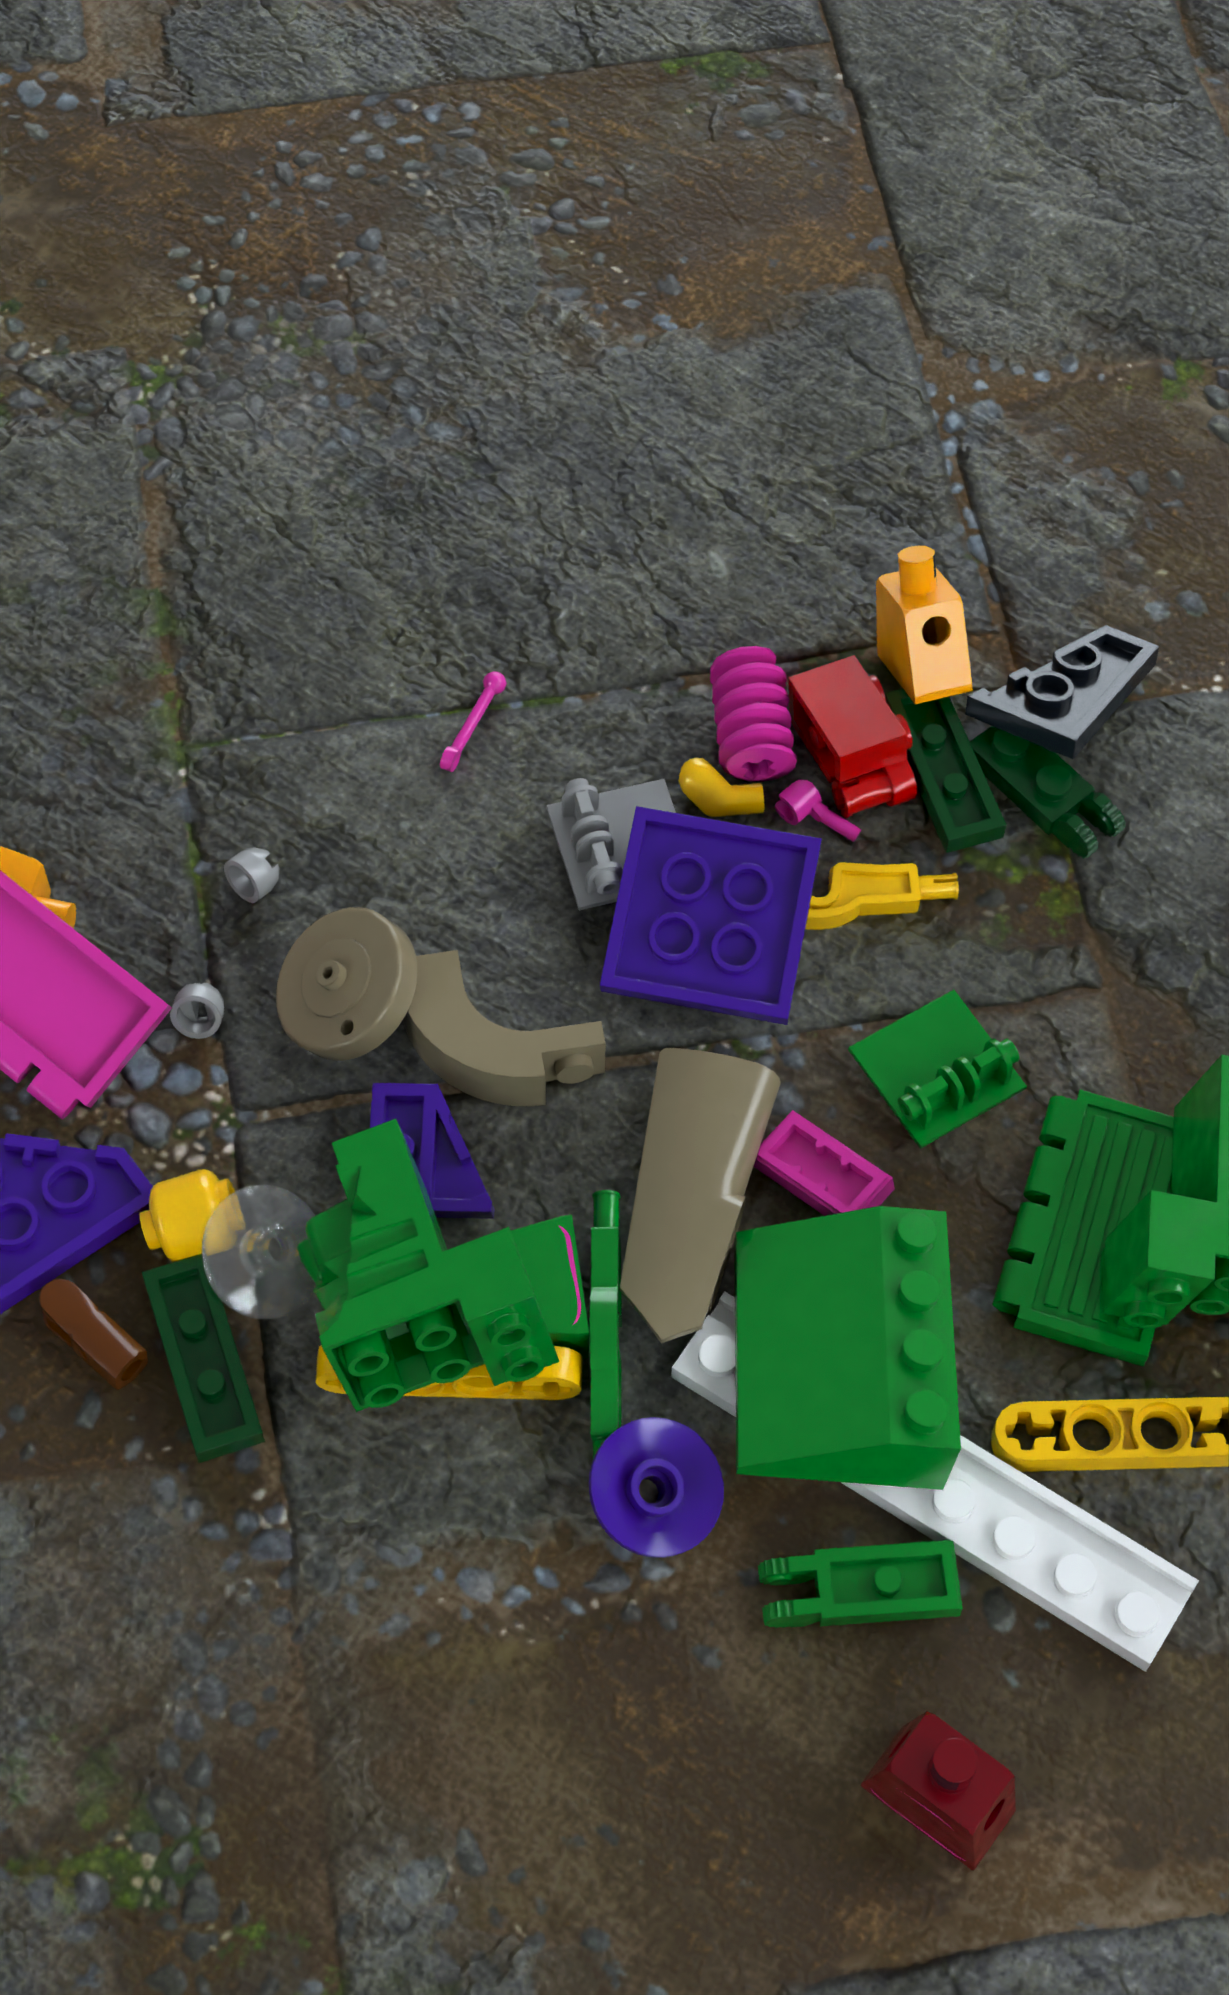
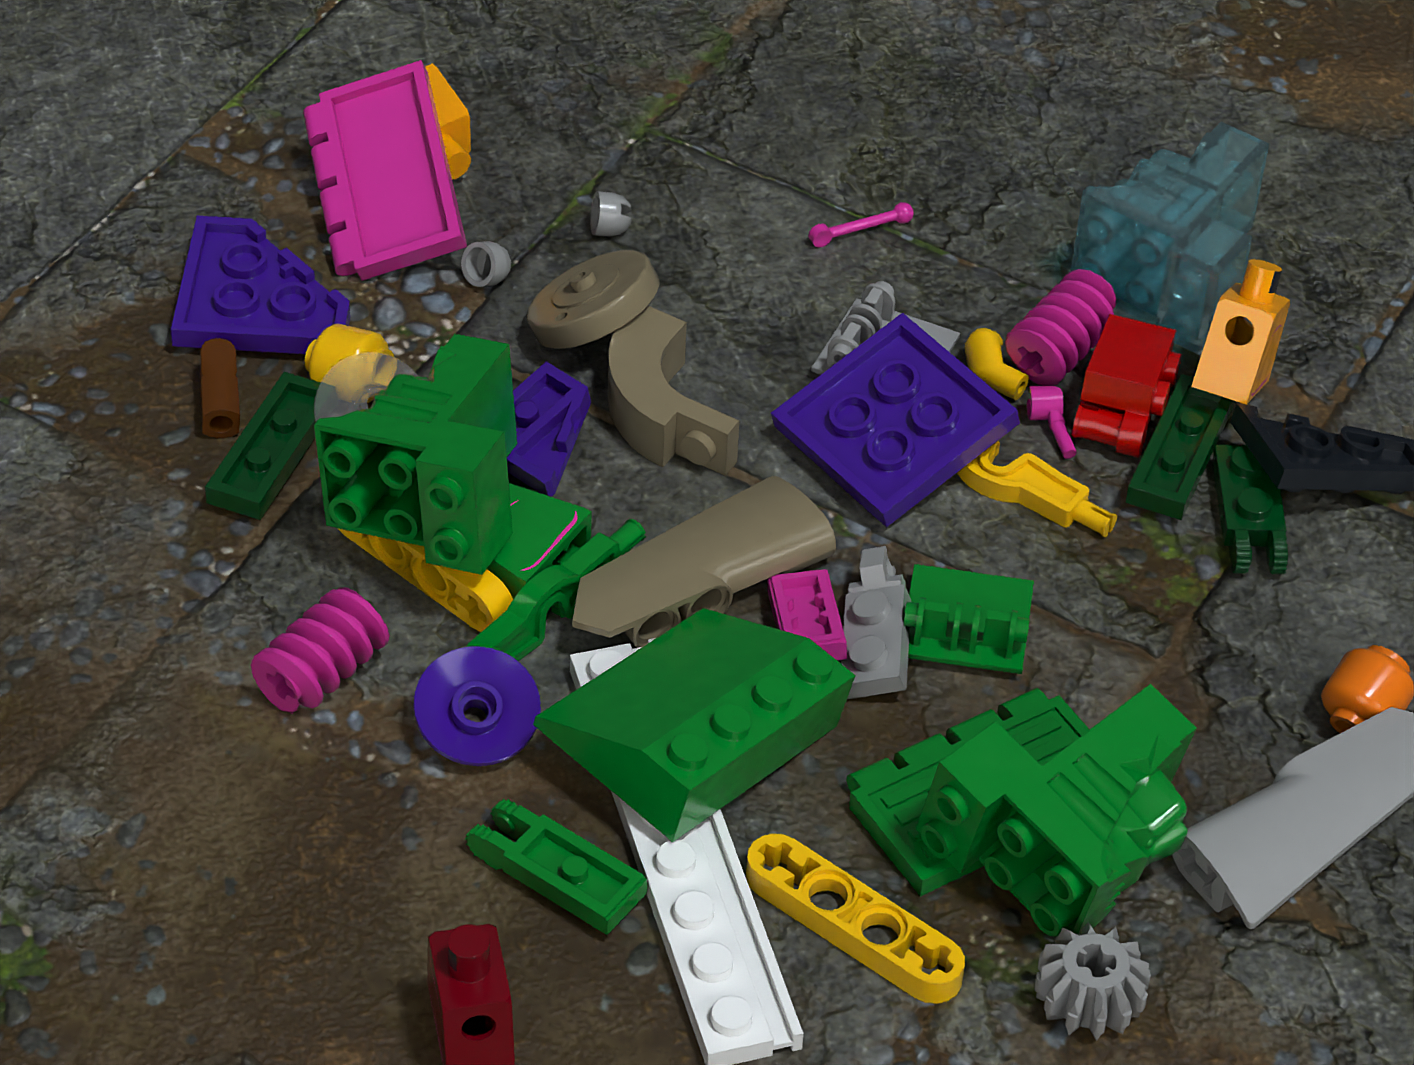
camera: 40 degrees right, 15 degrees down
(469, 1540) = (319, 650): none -> dark pink piece
(753, 565) = (1176, 230): none -> clear light blue brick
(886, 1137) = (876, 627): none -> light grey hinge

